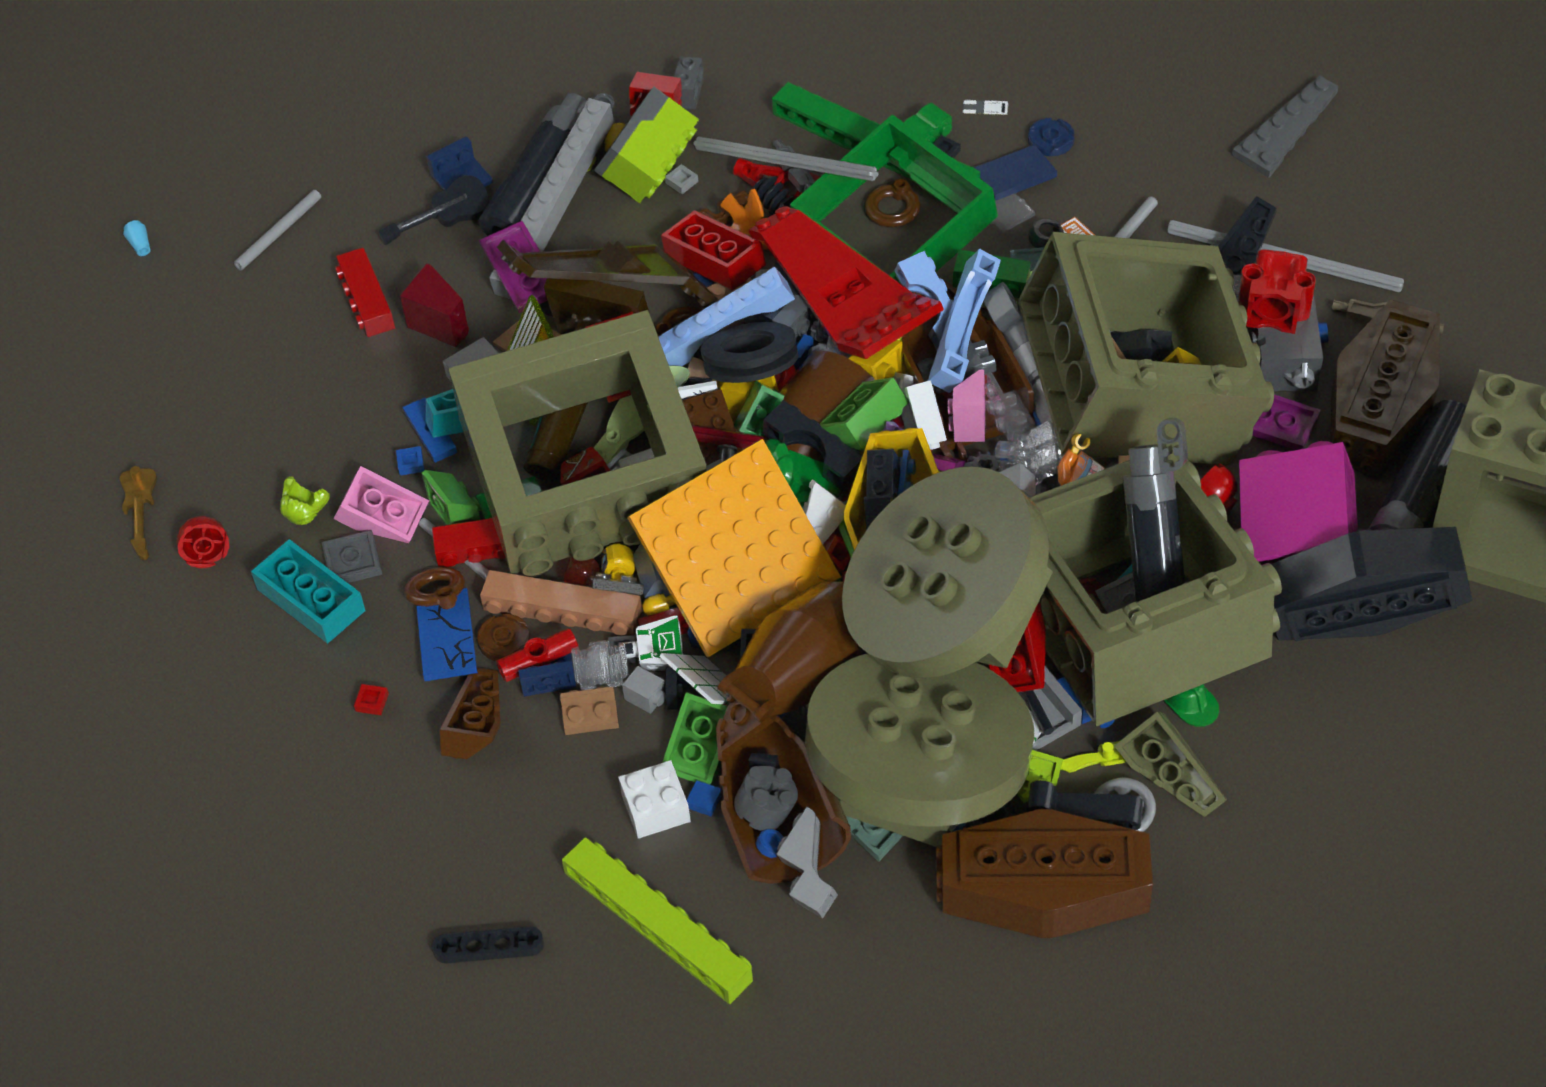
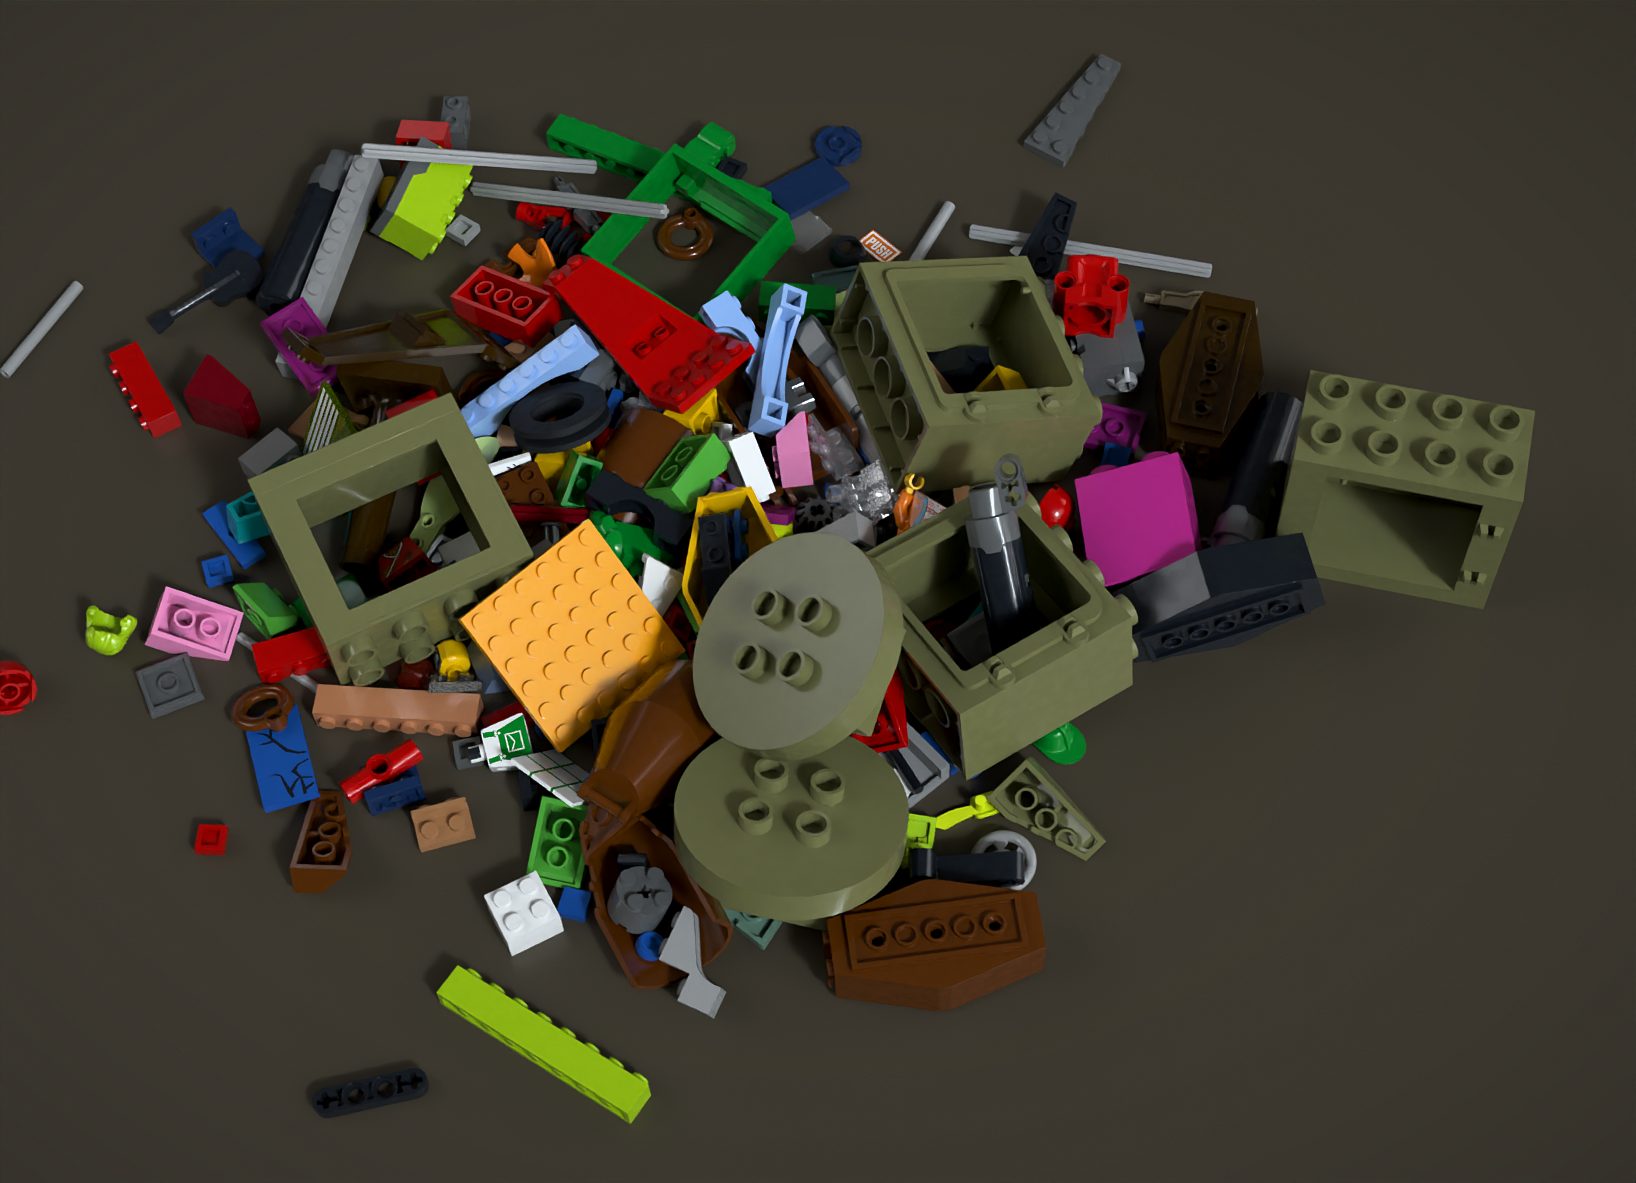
camera: 10 degrees left, 5 degrees up
(308, 591) = (128, 729): teal brick -> none
(502, 636) = (341, 753): reddish brown tile -> none
(600, 664) = (448, 774): clear brick -> none
(644, 690) = (498, 795): light grey brick -> none
(657, 603) = (498, 699): yellow cylinder -> none
(704, 112) = (478, 158): none -> light grey axle
(985, 107) = (762, 120): sticker -> none
(1284, 443) = (1116, 455): none -> blue tile

